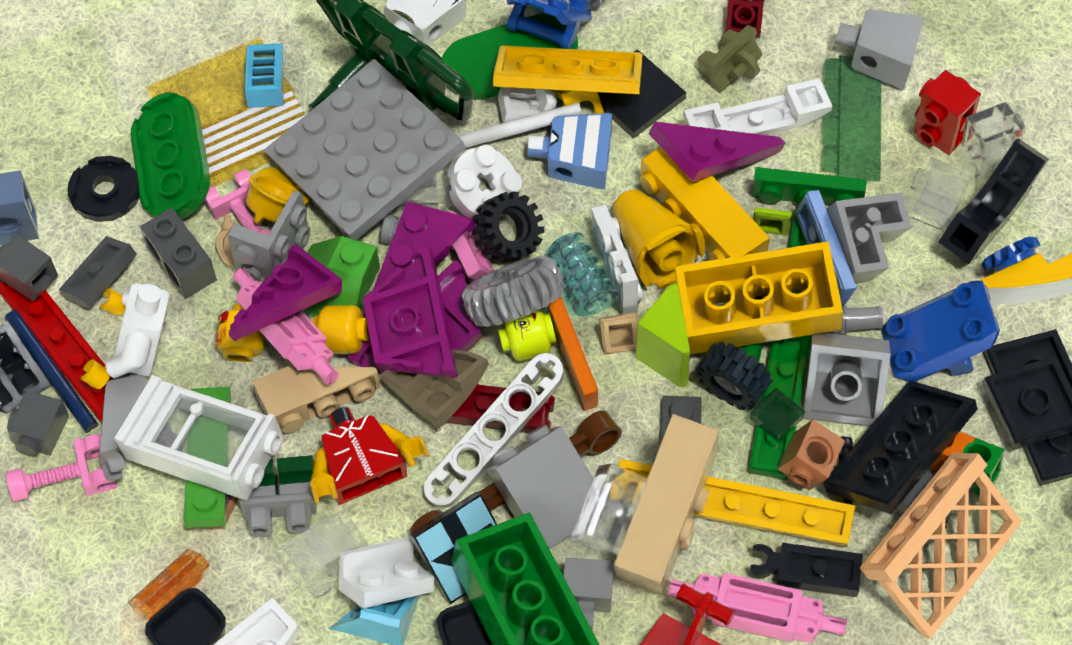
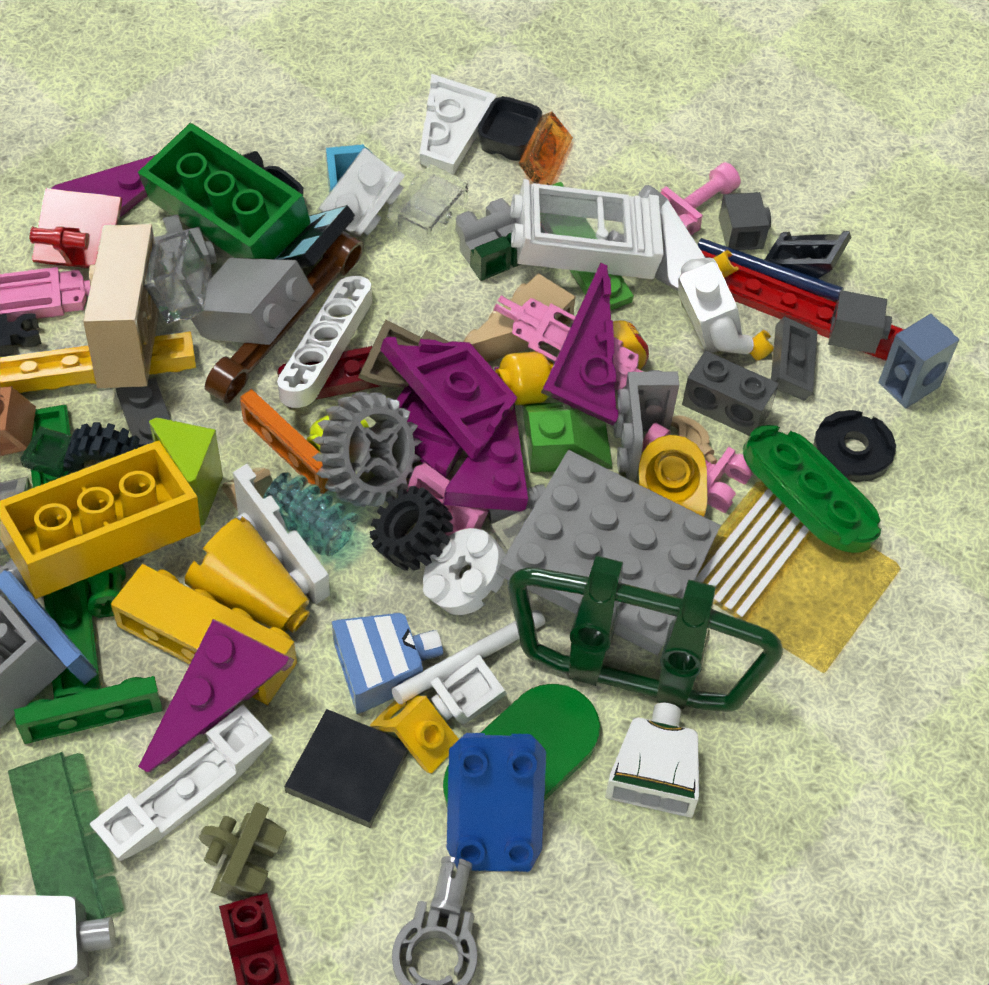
camera: 150 degrees right, 5 degrees down
(264, 94) = (782, 589): medium azure slope -> none
(361, 457) = (441, 283): red torso -> none
(568, 69) = (409, 730): yellow tile -> none
(773, 221) = (120, 659): lime slope -> none

